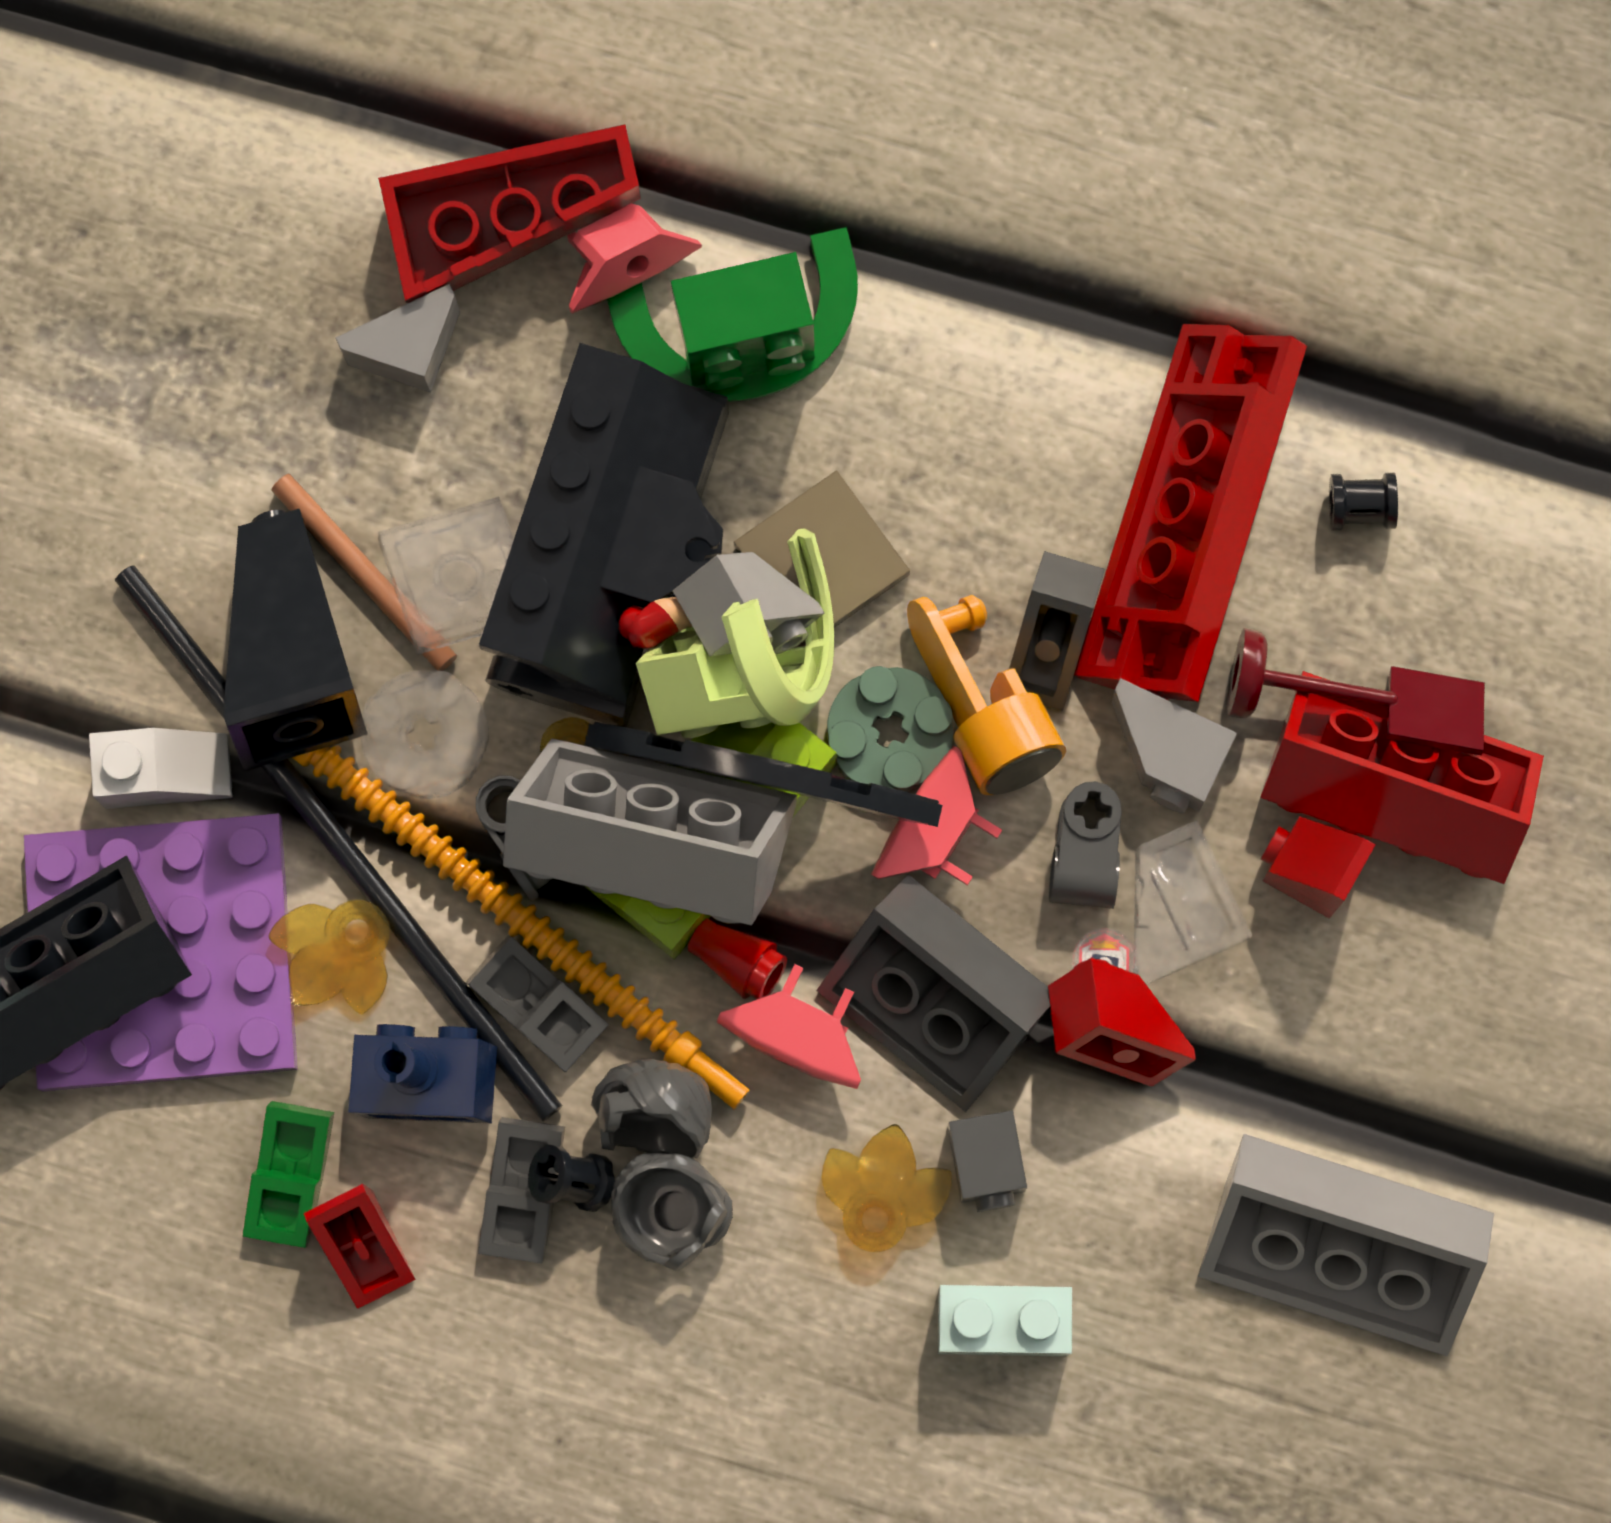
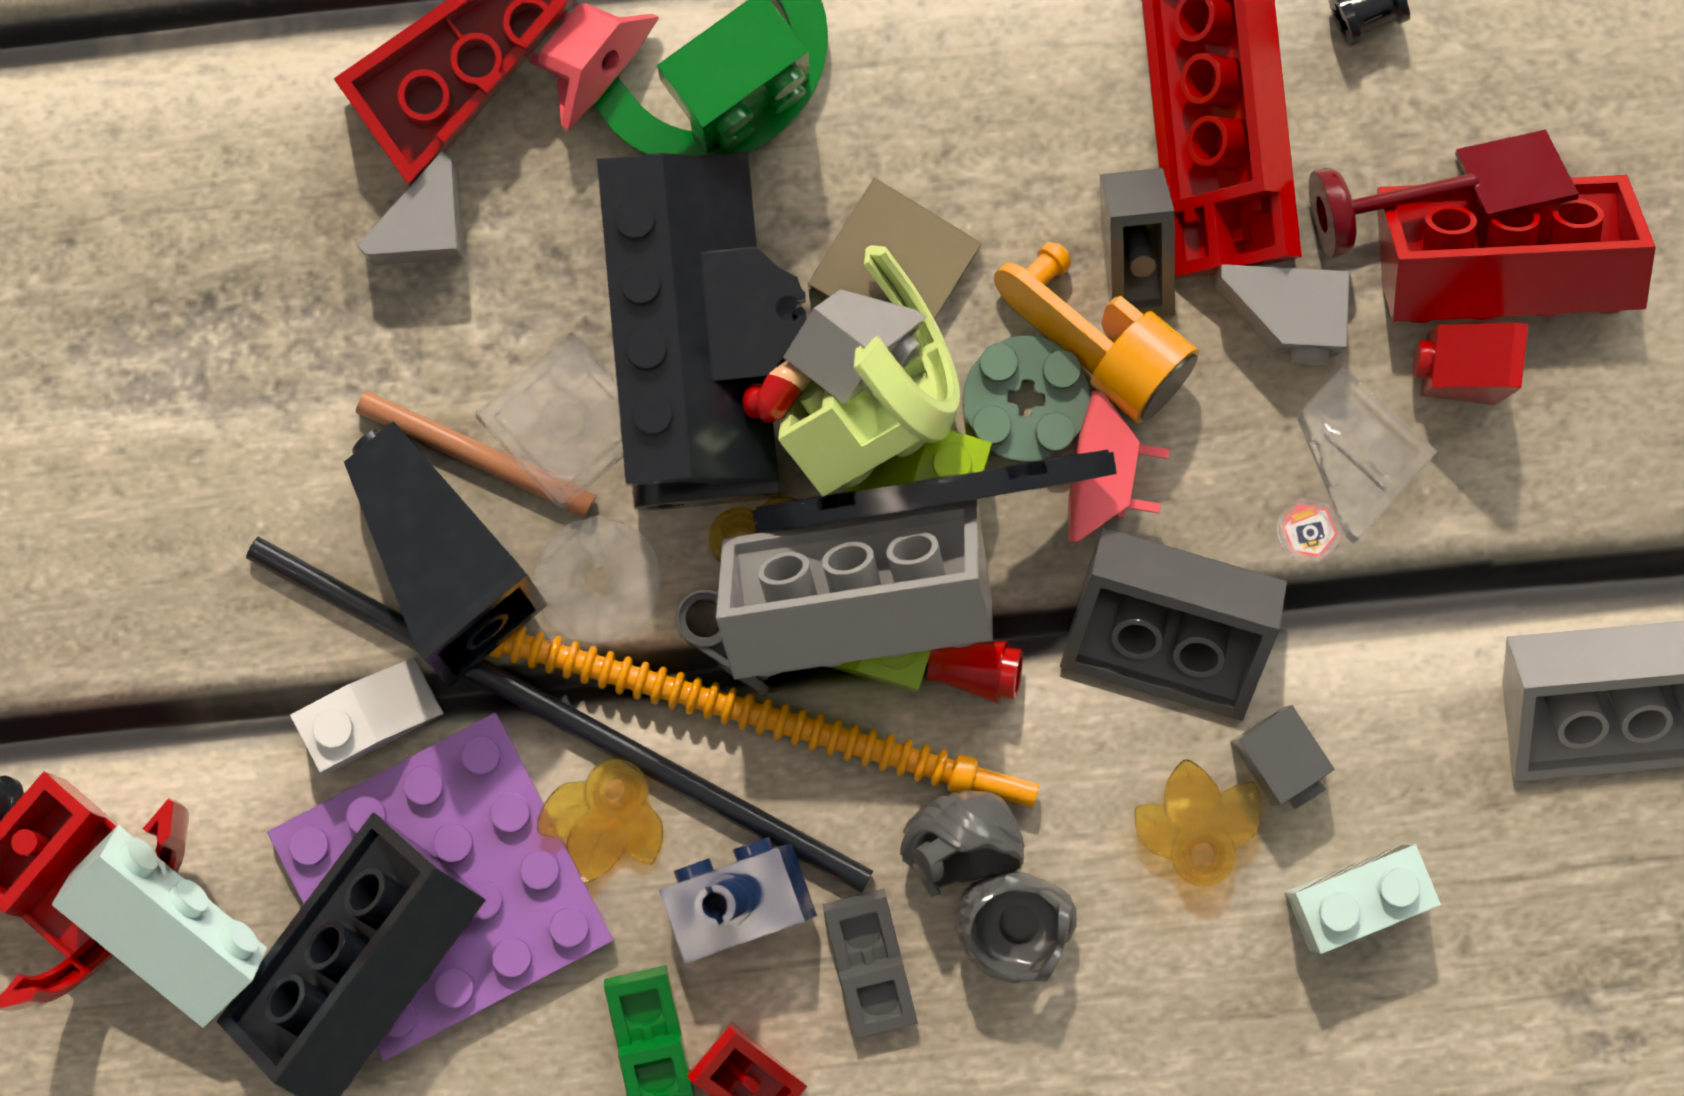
camera: 30 degrees left, 5 degrees up
(537, 1003) = (809, 786): dark grey slope -> none
(570, 1180) = (914, 936): black bush -> none
(797, 1033) = (1063, 714): coral piece -> none
(1084, 858) = (1257, 446): dark grey piece -> none
(1116, 1024) = (1349, 584): red slope -> none

